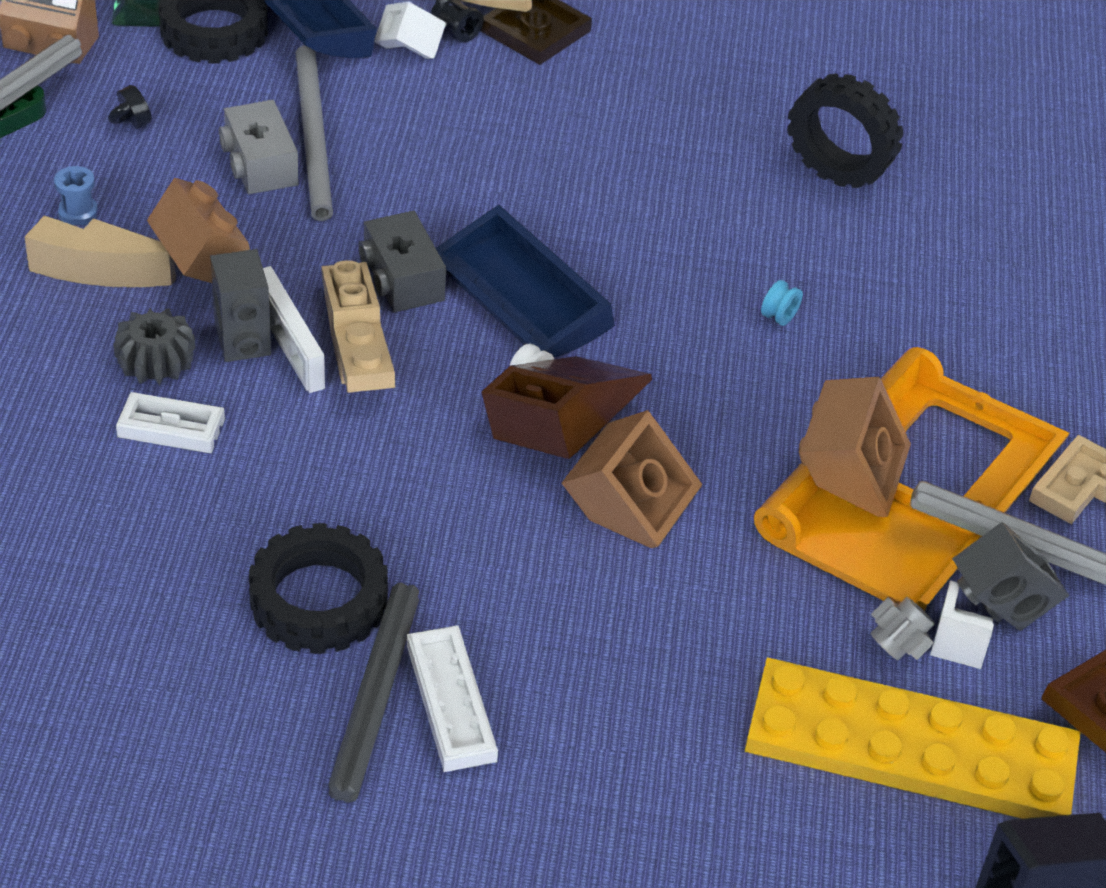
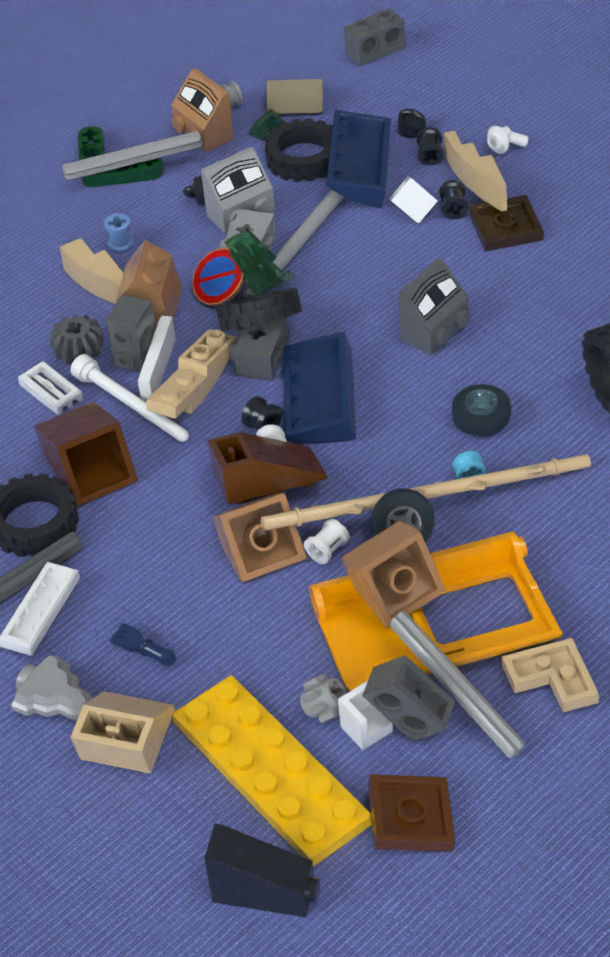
camera: 45 degrees right, 0 degrees up
(193, 89) = (236, 185): none -> light grey slope
(207, 379) = (87, 370): none -> white piece
(270, 200) = (217, 278): none -> piece
(303, 151) = (257, 263): none -> clear green wing
(316, 470) = (87, 451): none -> reddish brown slope
(375, 216) = (258, 309): none -> black tyre
(490, 342) = (259, 413): none -> black wheel
(576, 145) = (432, 308): none -> dark grey slope
(581, 790) = (49, 690): none -> light grey rock
(603, 678) = (132, 640): none -> dark blue piece
(715, 459) = (326, 541): none -> white bush
(725, 787) = (121, 731): none -> tan slope
(727, 235) = (481, 410): none -> black wheel
(730, 390) = (437, 489): none -> tan plant
(785, 386) = (397, 502): none -> black wheel

